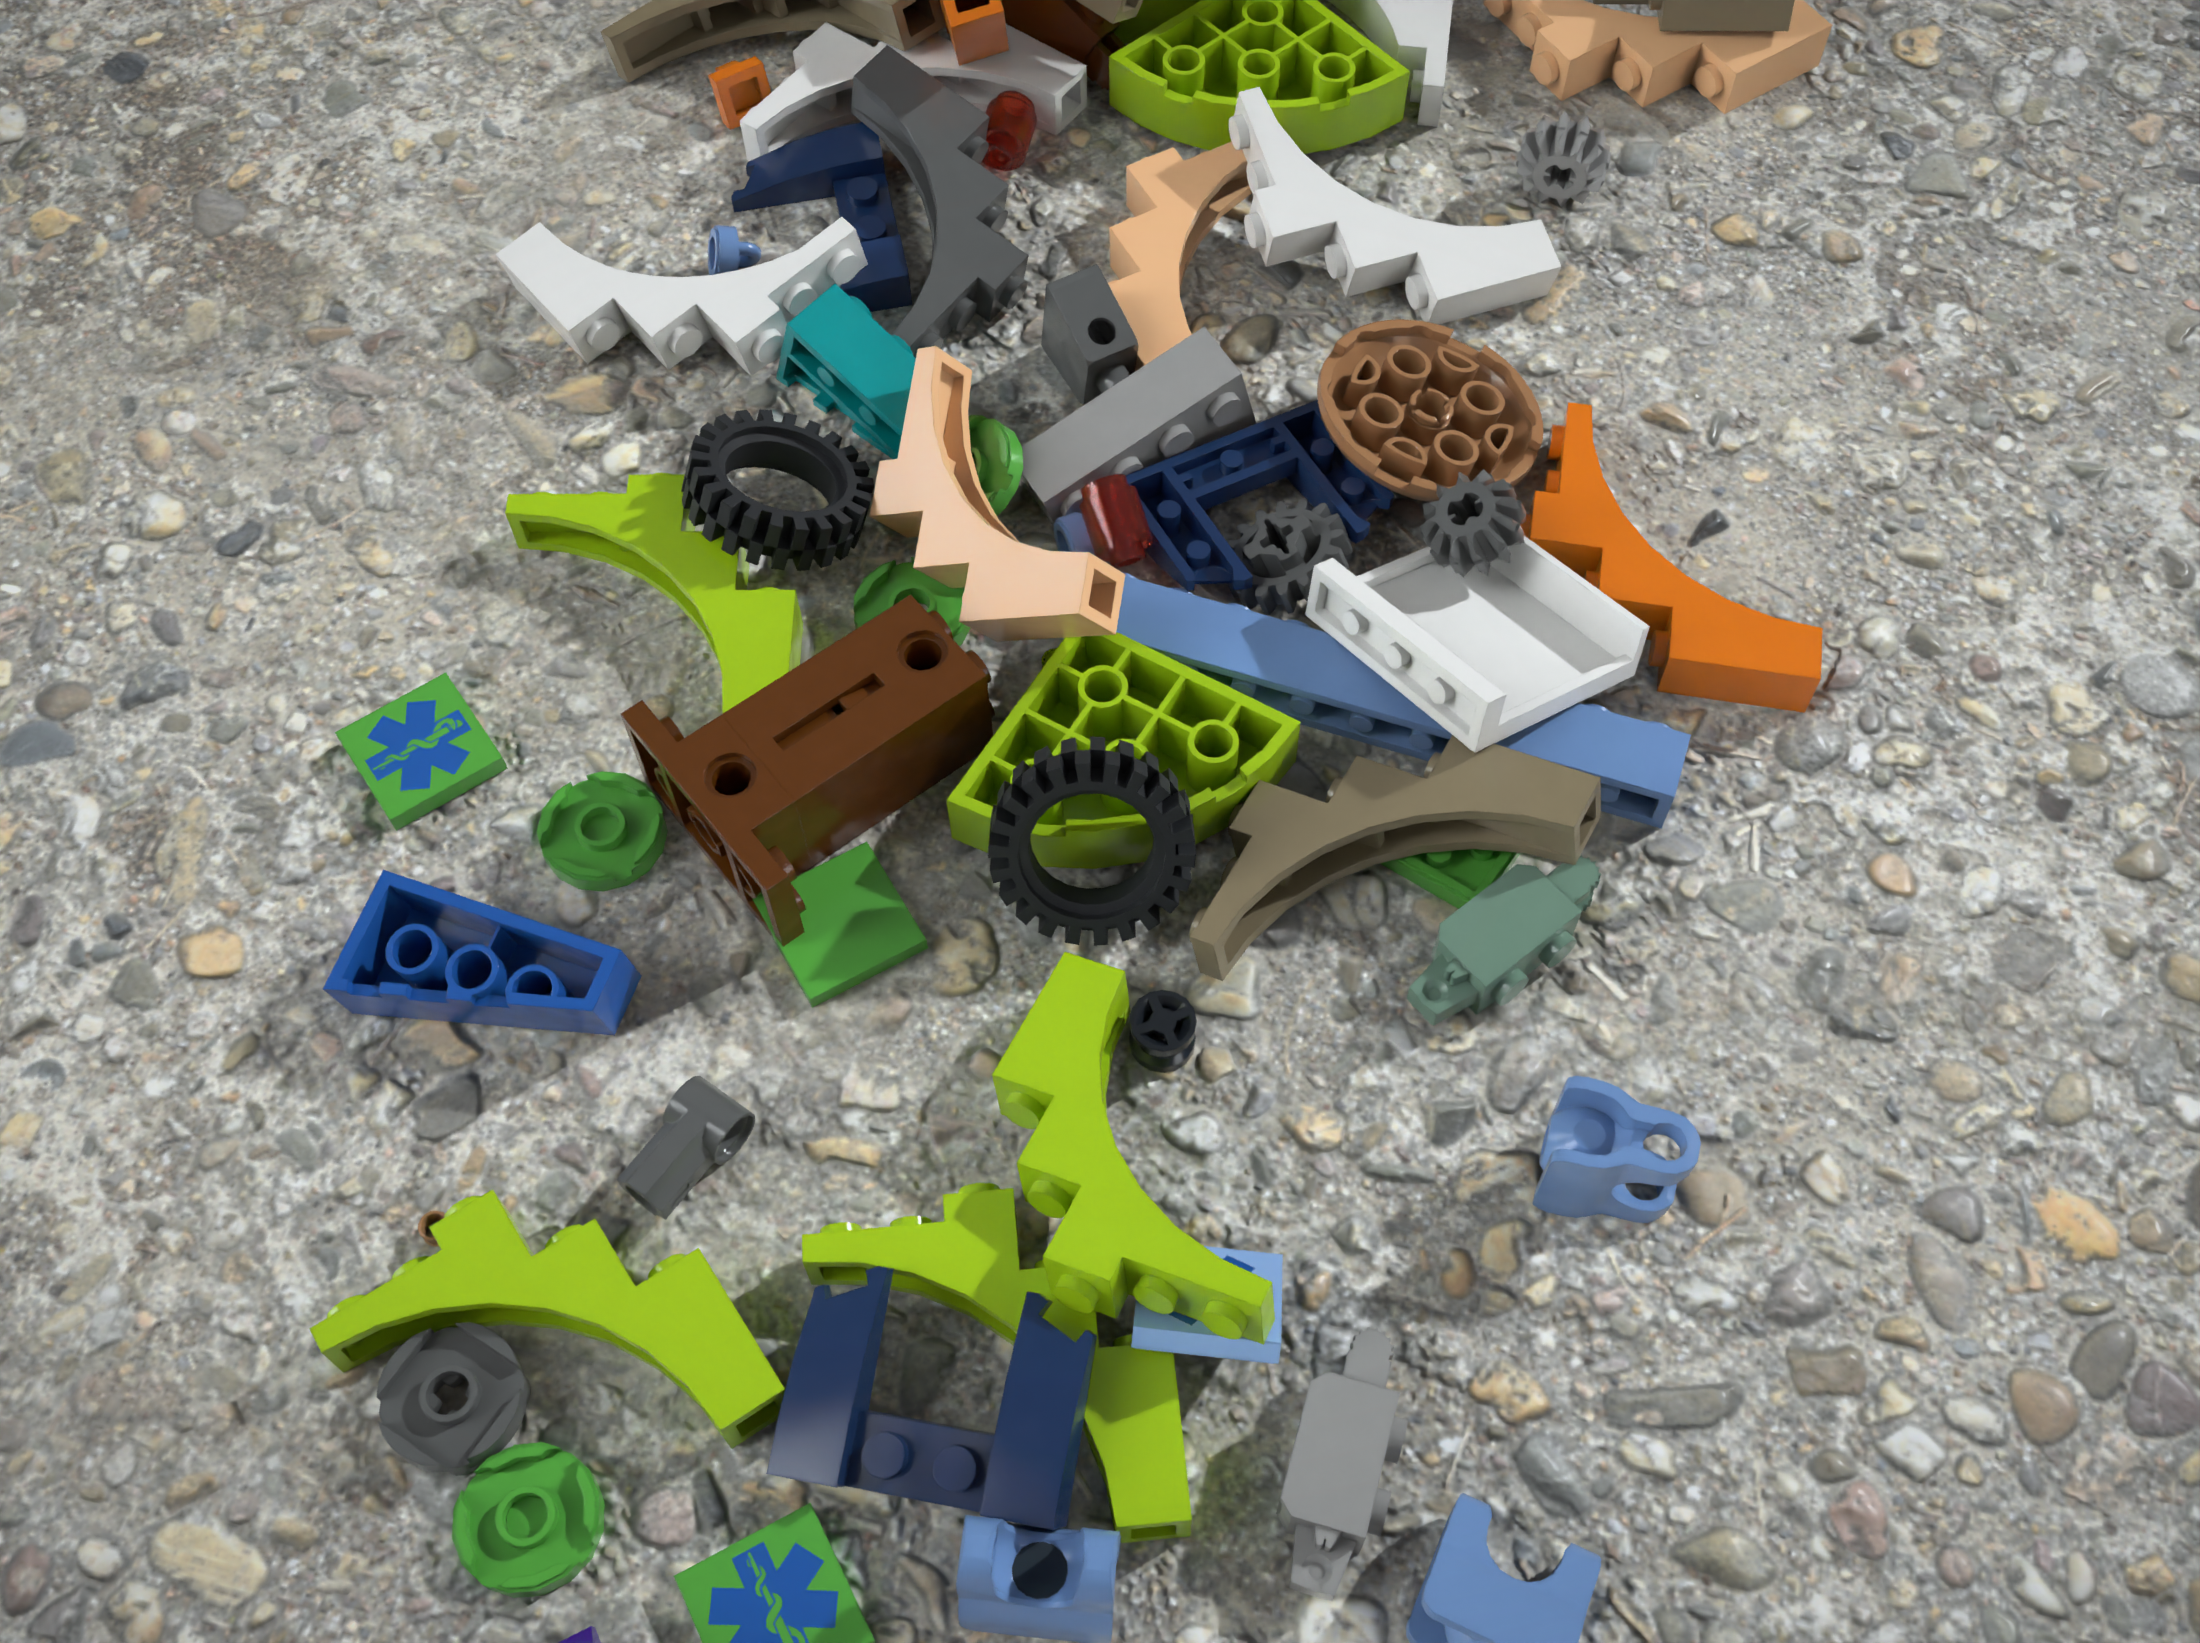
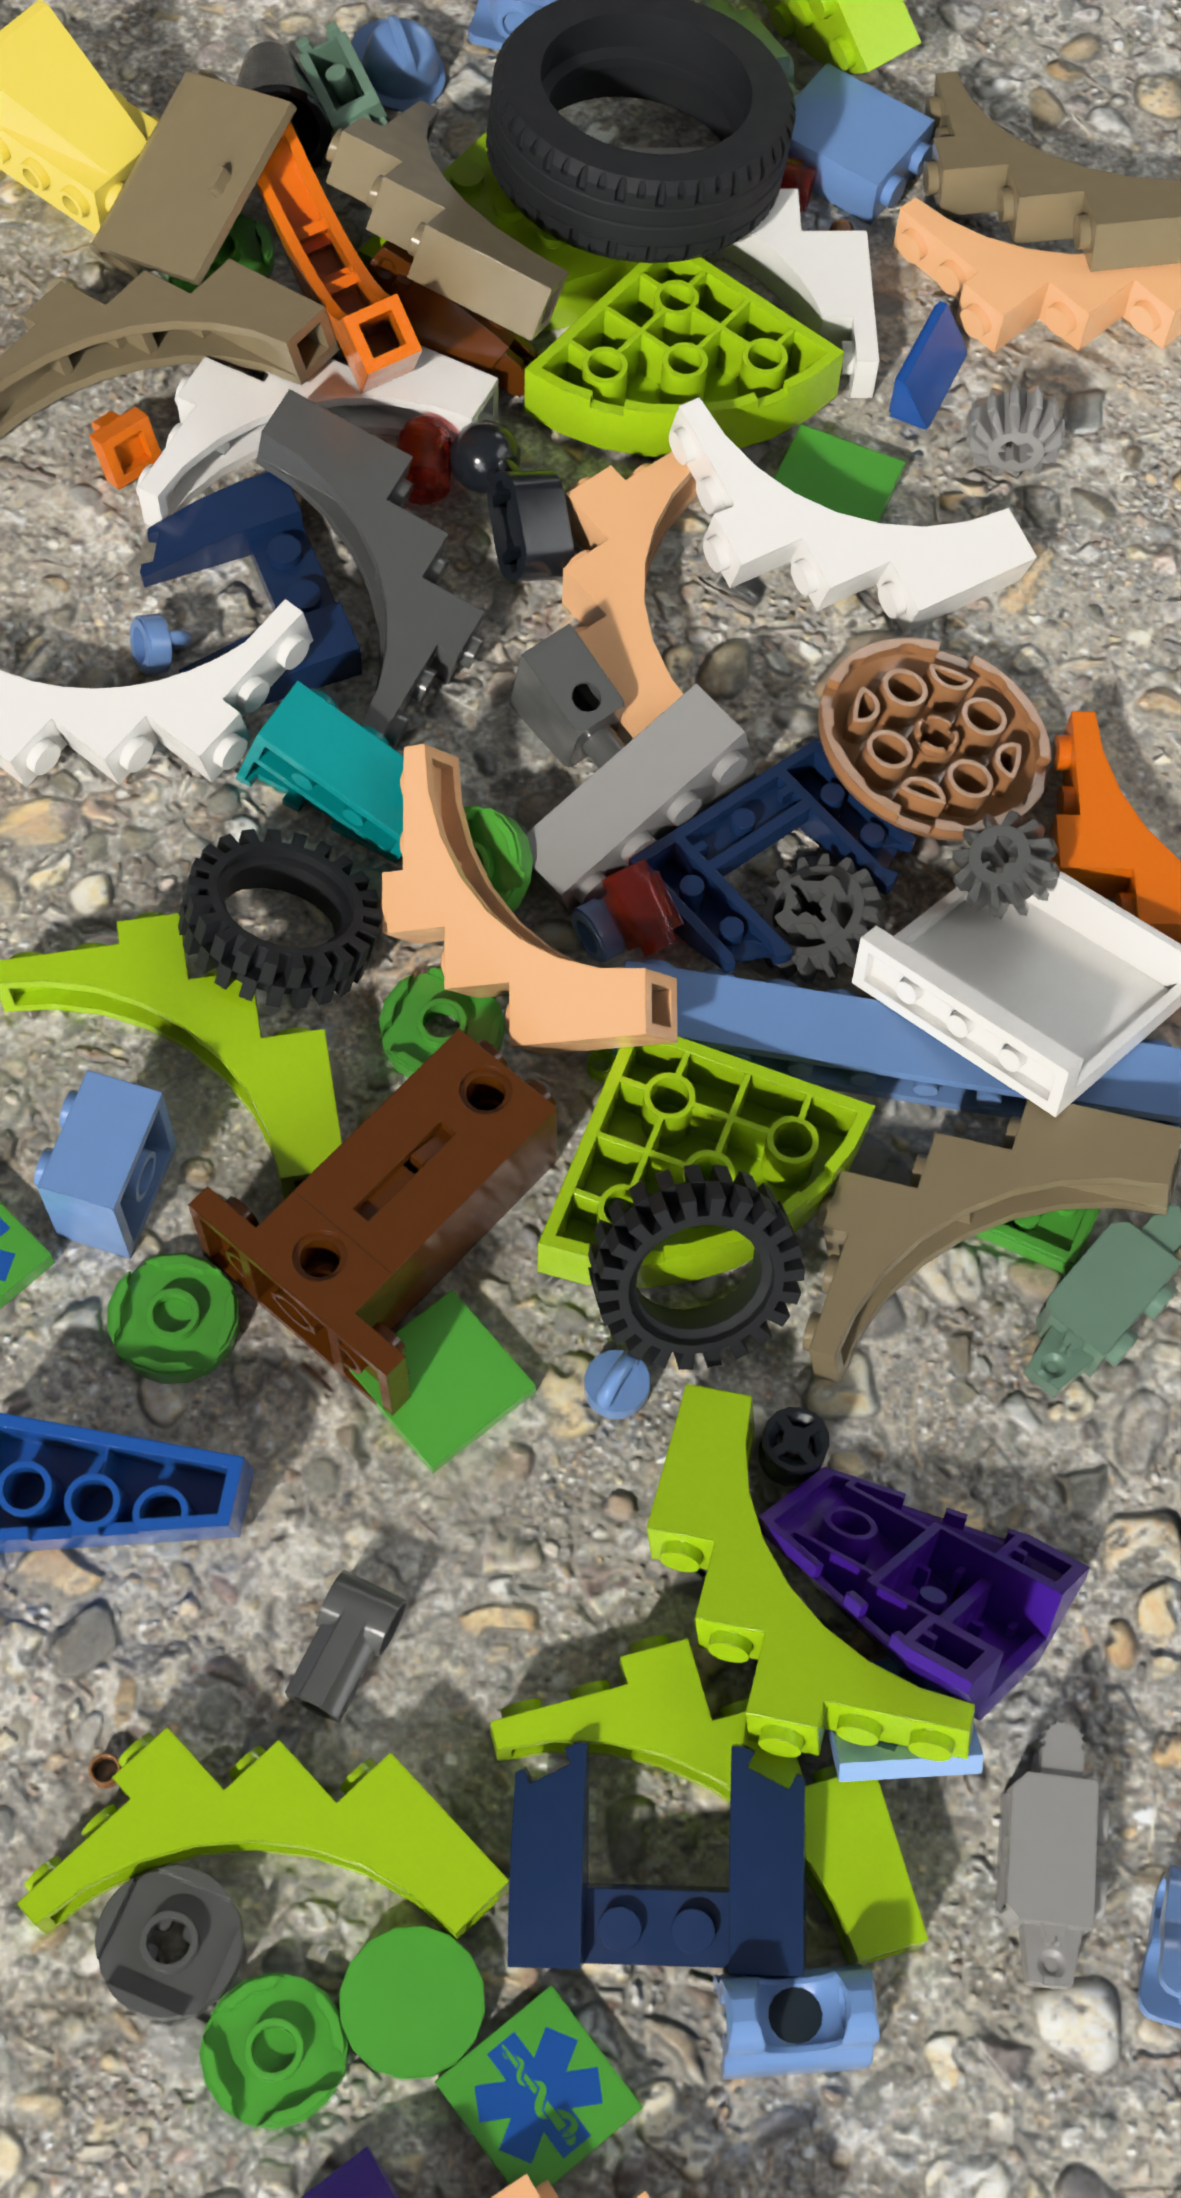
camera: 15 degrees left, 5 degrees up
(566, 679) = (106, 1163): none -> medium blue brick
(671, 1497) = (412, 2003): none -> bright green tile
(1005, 950) = (616, 1384): none -> medium blue tile
(1085, 171) = (524, 506): none -> black beam
(1264, 1185) = (929, 1592): none -> dark purple wedge
(1394, 180) = (840, 474): none -> bright green tile
(1493, 104) = (928, 369): none -> blue slope

